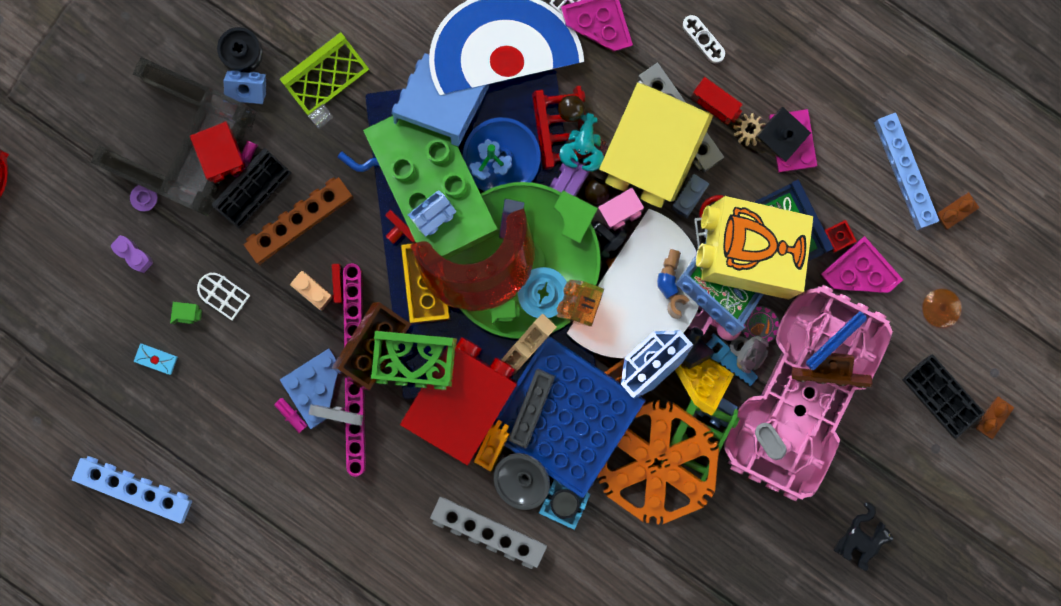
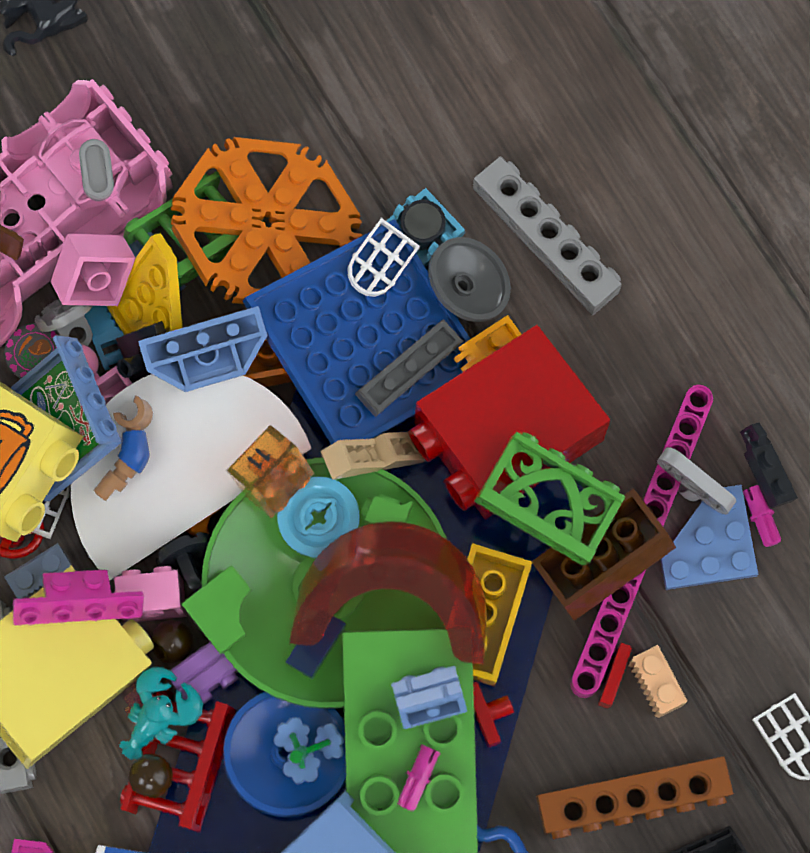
camera: 160 degrees left, 10 degrees down
(299, 445) = (767, 467): none -> black hinge
(420, 170) = (418, 778): none -> dark pink axle
(573, 472) = (391, 257): none -> white window
(657, 183) = (77, 598): none -> dark pink bracket
(744, 382) = (92, 269): none -> bright pink brick

